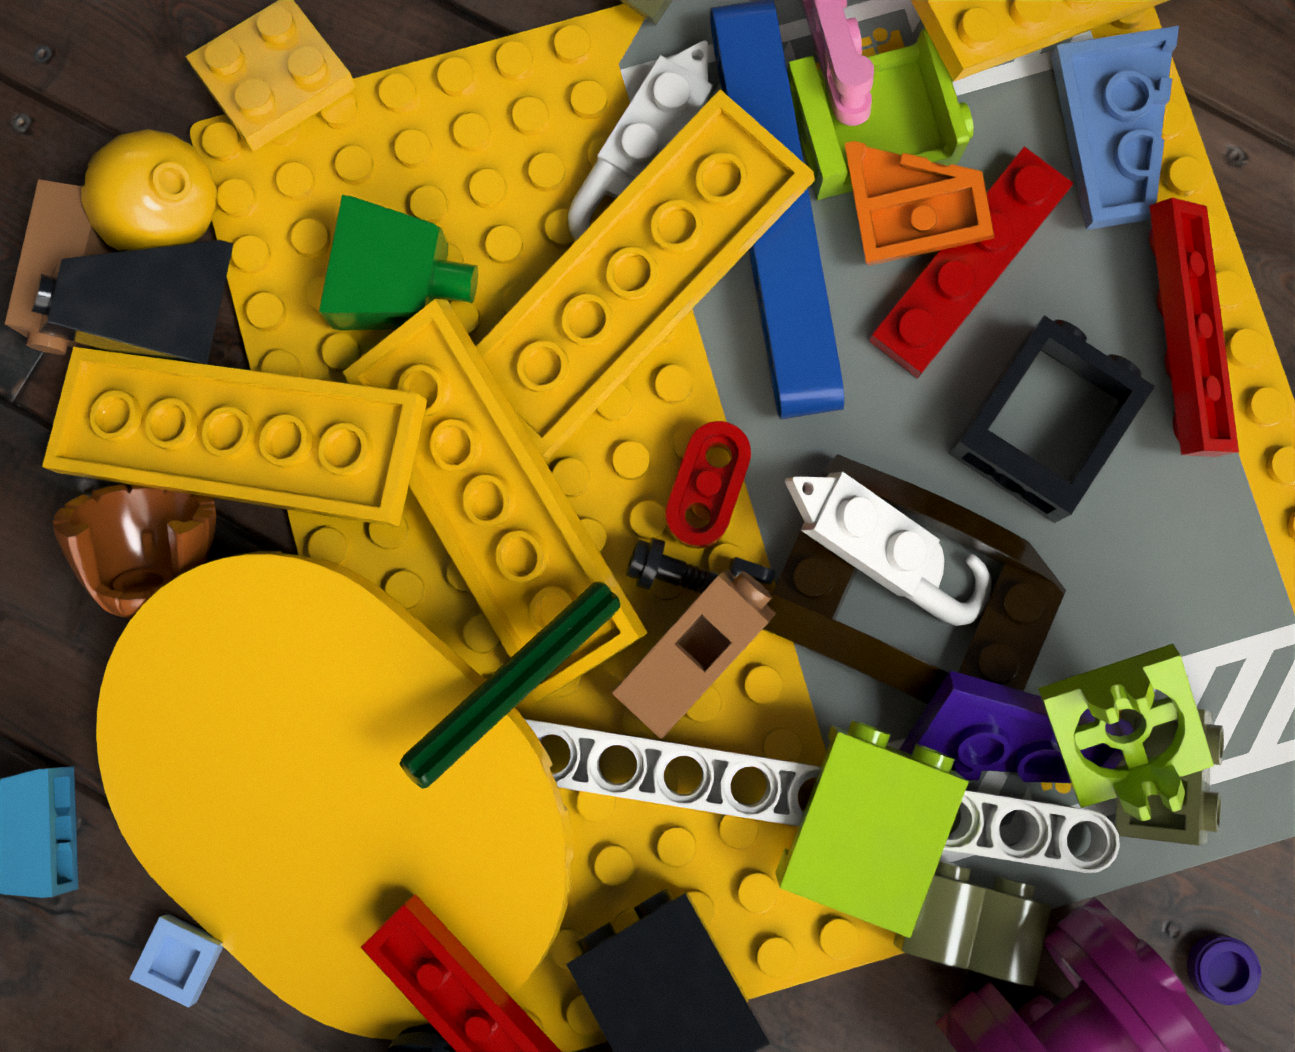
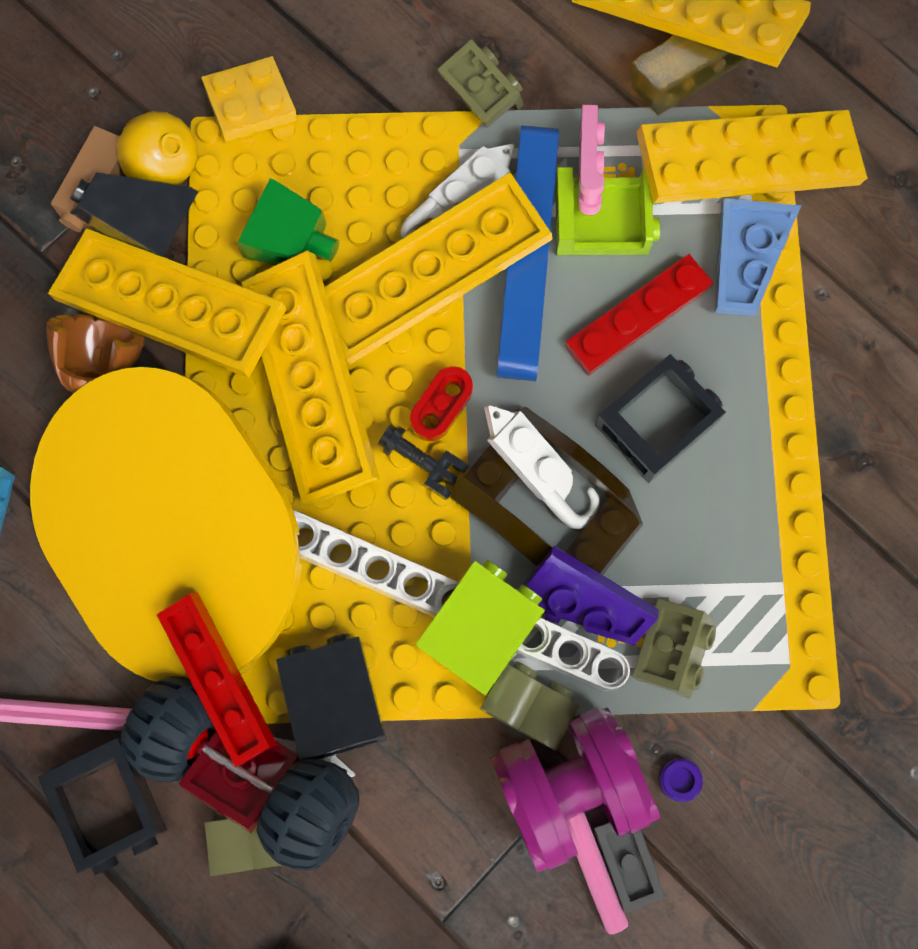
camera: 10 degrees right, 5 degrees down
(177, 960) = (44, 604): light blue plate -> none
(509, 685) = (287, 478): dark green axle -> none
(696, 651) = (405, 496): medium nougat brick -> none
(915, 204) = (611, 270): orange wing -> none
(1120, 687) = (647, 579): lime piece -> none
(1193, 329) = (762, 387): red plate -> none

